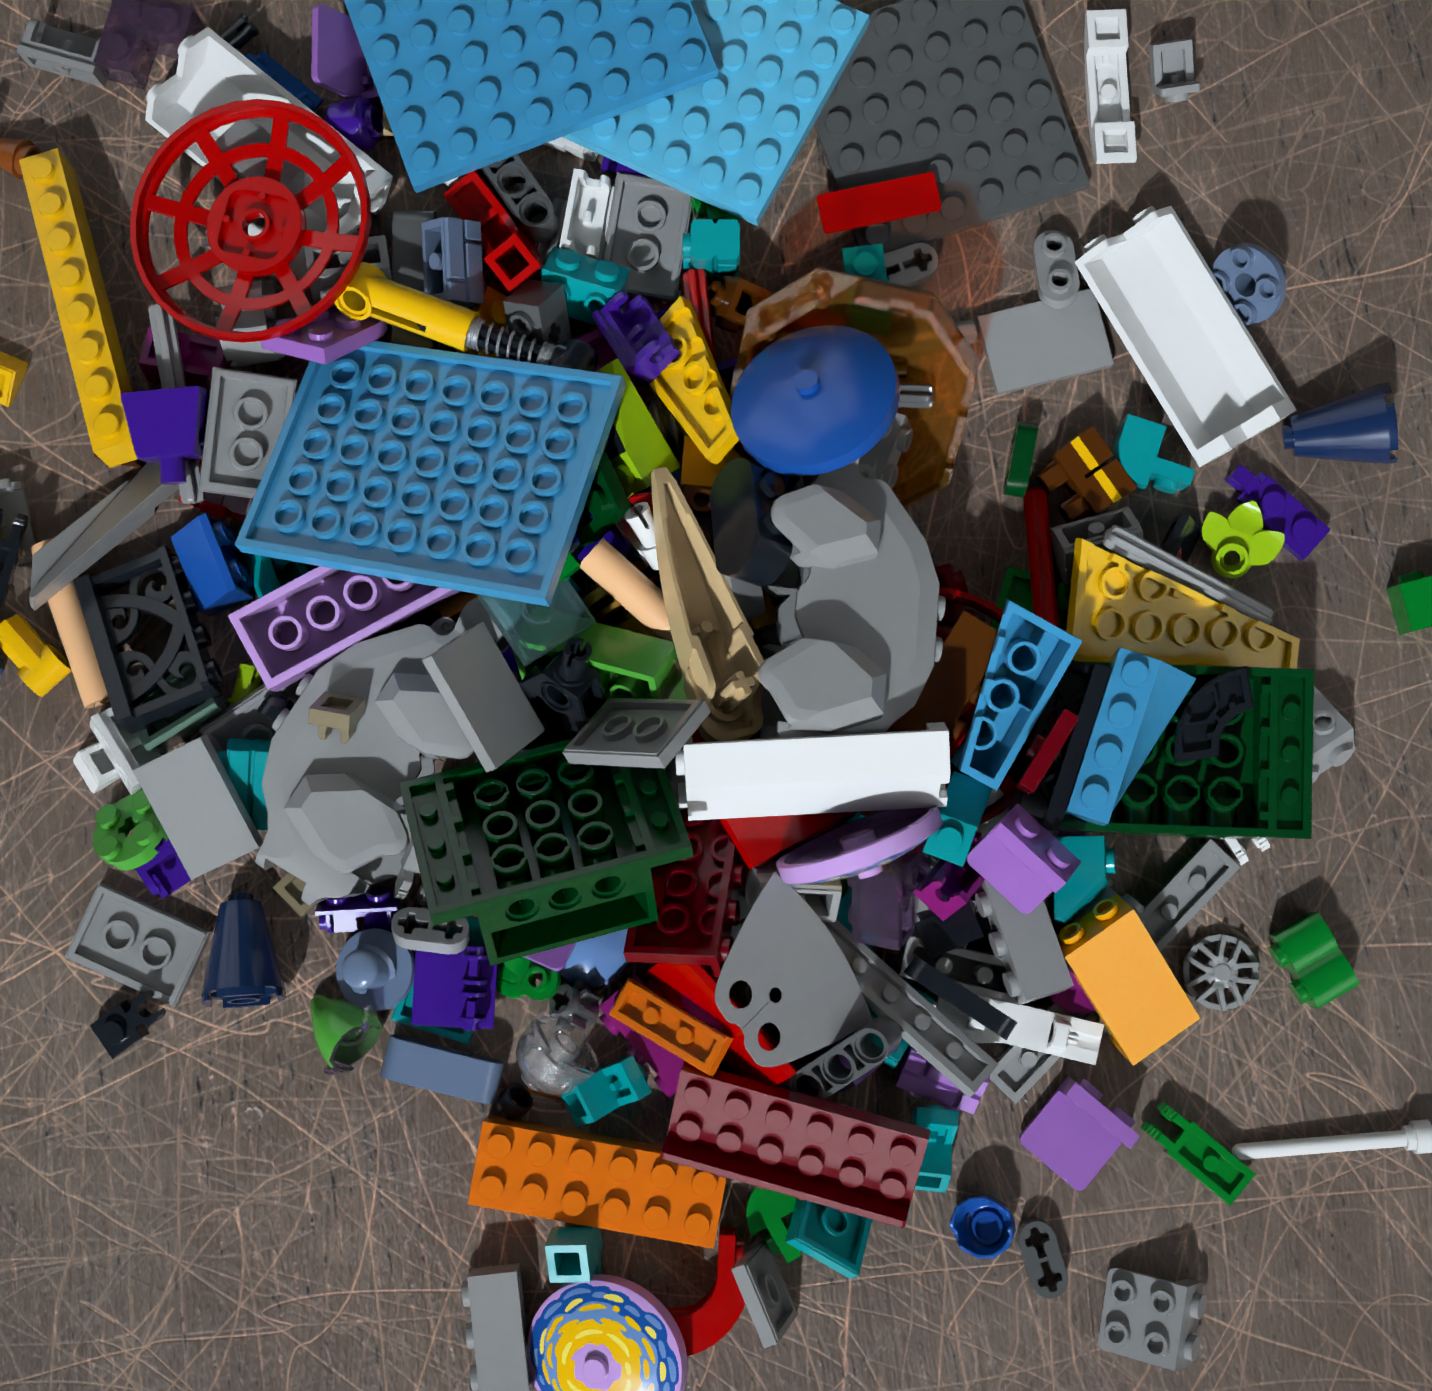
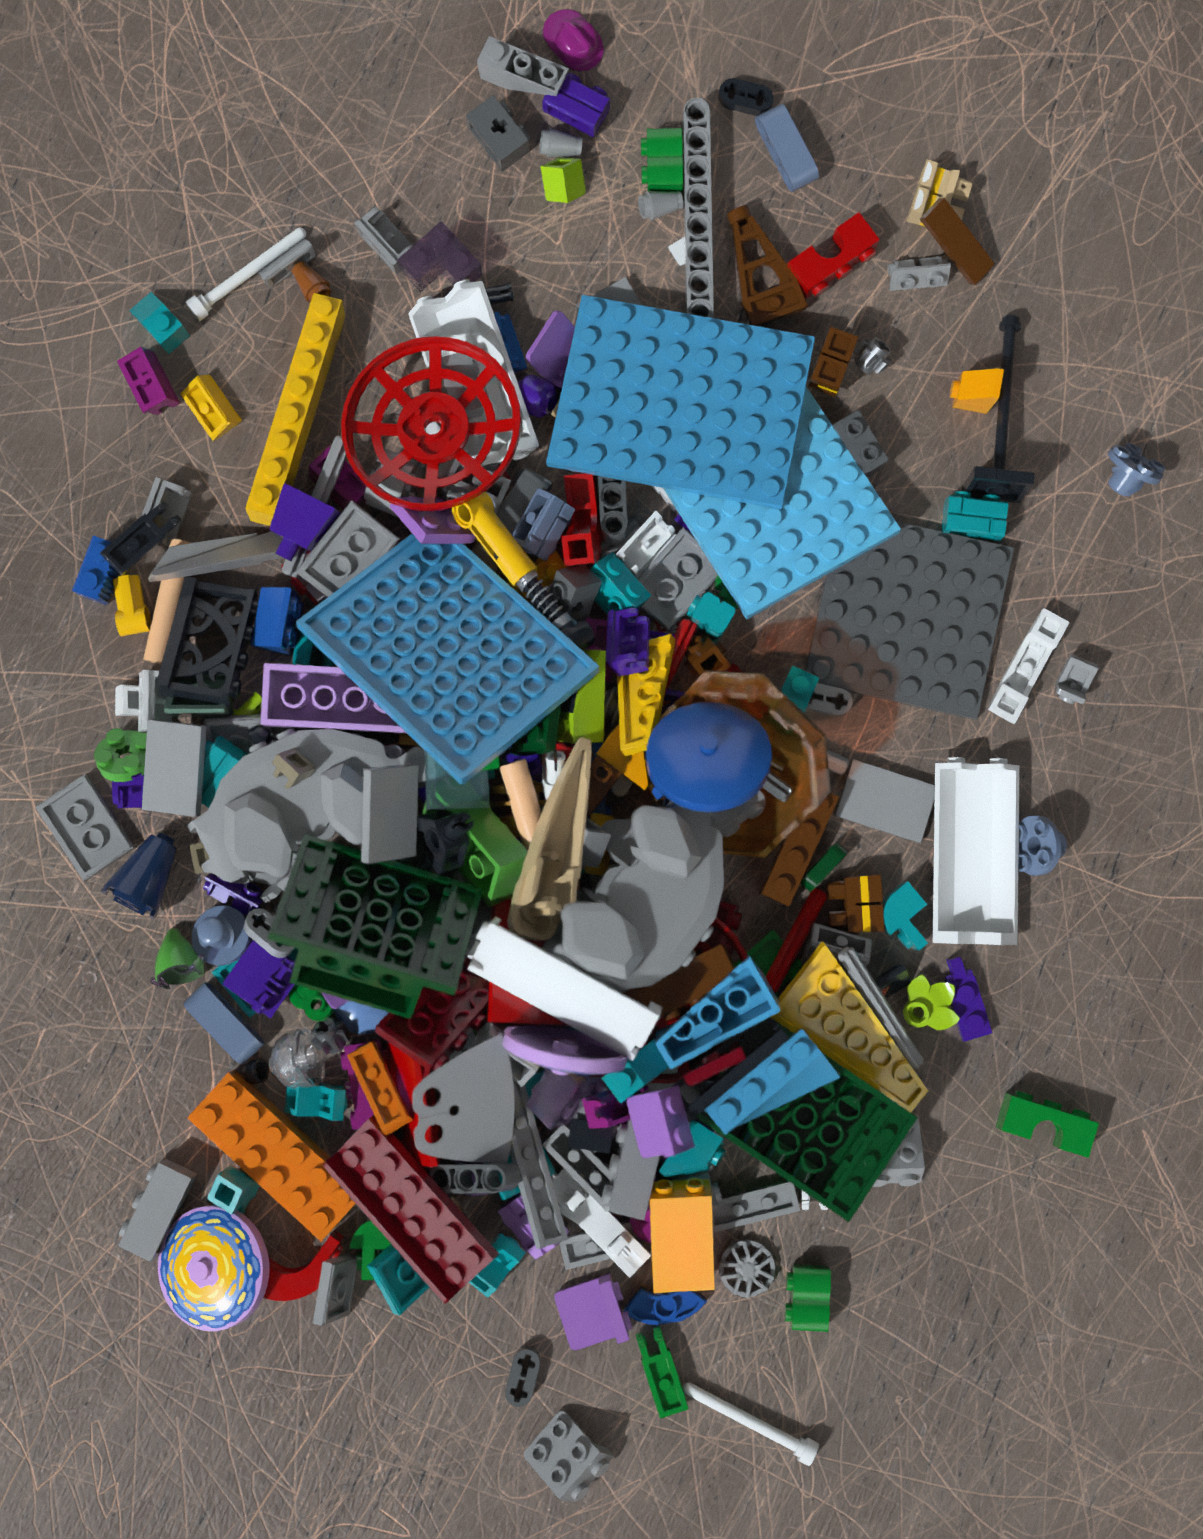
camera: 30 degrees right, 0 degrees up
(125, 1024) = (46, 873): black plate -> none
(636, 732) = (468, 895): light grey tile -> none
(742, 526) = (611, 813): black brick -> none
(879, 202) = (834, 649): red piece -> none
(960, 997) = (570, 1183): black beam -> none
(981, 465) = (796, 854): none -> reddish brown brick
(983, 1226) = (497, 1333): blue hair -> none
(1054, 266) = (922, 758): light grey plate -> none
(1153, 1076) = (663, 1307): none -> blue tile
(1209, 712) = (834, 1104): black tile -> none
(1346, 429) = (1040, 976): dark blue cone -> none

